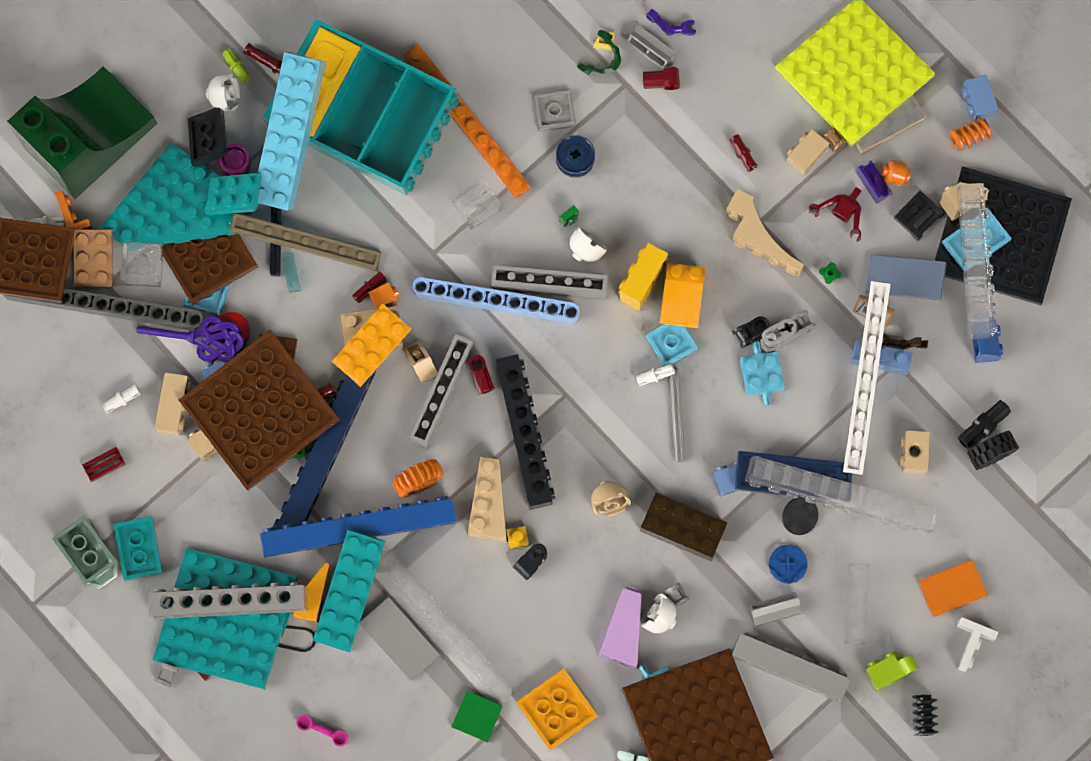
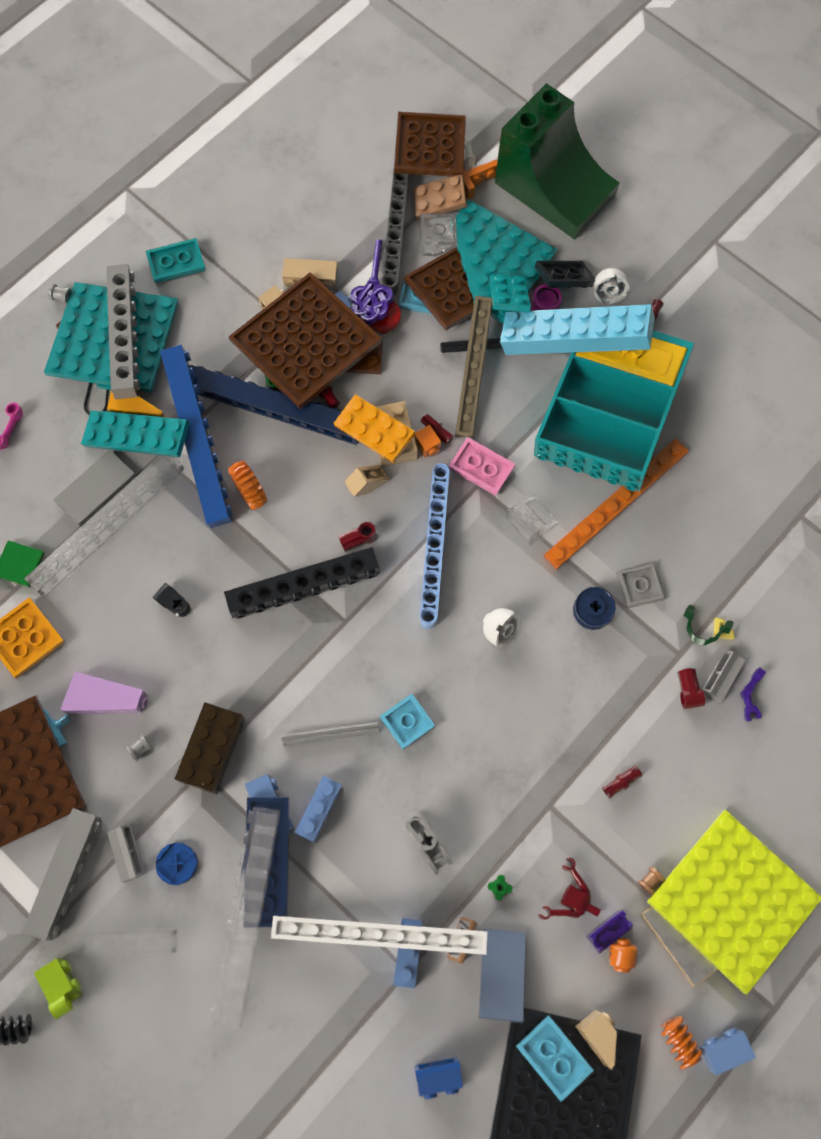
camera: 80 degrees right, 5 degrees down
(87, 553) = (168, 219): sand green slope -> none
(101, 457) = (245, 217): dark red tile -> none
(121, 399) = (312, 234): white pin -> none
(236, 66) = (640, 295): lime axle -> none
(291, 273) = (443, 361): clear light blue piece -> none
(415, 247) = (481, 466): none -> bright pink plate
(441, 391) = (336, 500): light grey brick -> none
(487, 510) = (224, 554): tan wedge -> none
(517, 537) = (196, 586): yellow plate -> none
(549, 282) = (457, 592): light grey brick -> none
(569, 216) = (529, 607): green plate -> none
(609, 498) = (237, 670): tan cylinder -> none
(643, 276) = (472, 684): yellow brick -> none
(654, 375) = (370, 706): white axle -> none
(660, 615) = (115, 730): white cylinder -> none
(682, 295) = (457, 727): light orange slope -> none
(748, 428) = (318, 809): none -> medium blue brick
(749, 331) = (425, 803): black piece -> none
(754, 237) = (531, 798): tan arch -> none
(762, 373) = (381, 820): medium azure plate -> none
(799, 516) = (223, 871): black piece -> none
(807, 152) = (633, 852): tan brick -> none
(914, 210) = (582, 980): black plate -> none
(916, 342) = (427, 982): dark brown piece -> none
(916, 440) = (292, 1005): tan brick -> none
(952, 588) = (153, 1054): orange tile -> none
(974, 642) = (90, 1083): white bracket -> none
(976, 261) = (522, 1058): clear brick -> none
(984, 424) = (341, 1081): black piece -> none
(993, 450) = (307, 1094): black tyre -> none

